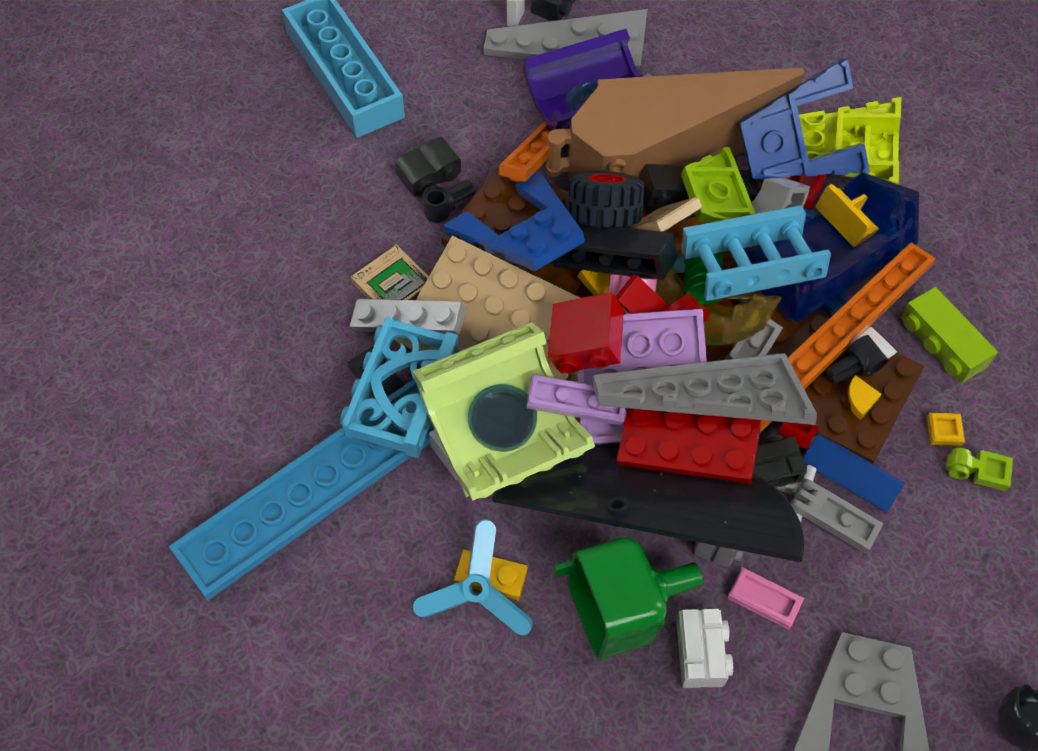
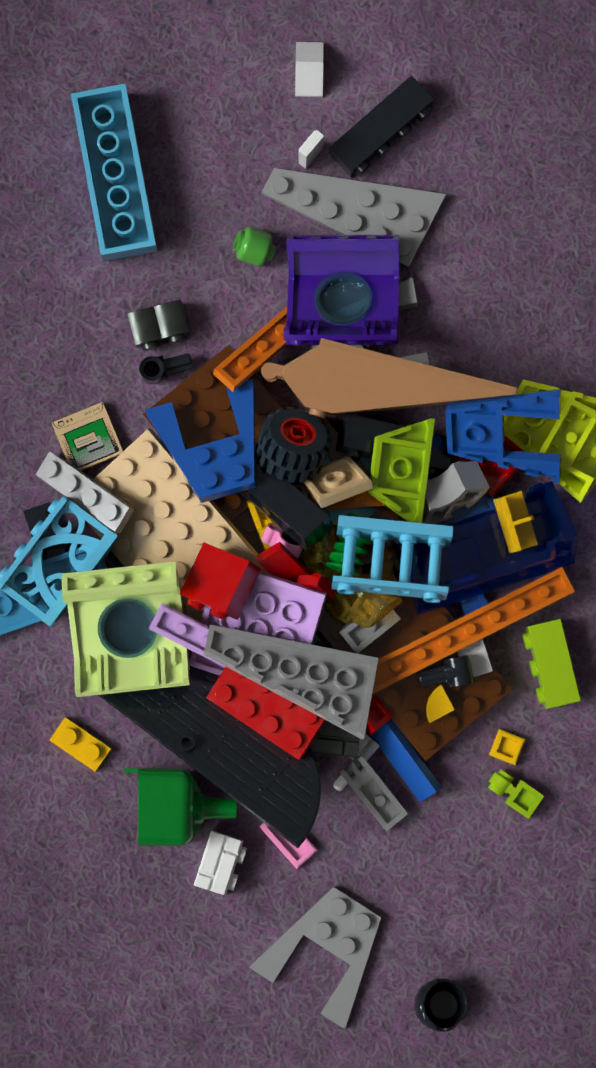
camera: 20 degrees right, 25 degrees up
(478, 572) = (54, 755): medium azure piece -> none
(494, 85) = (254, 246): none -> bright green head

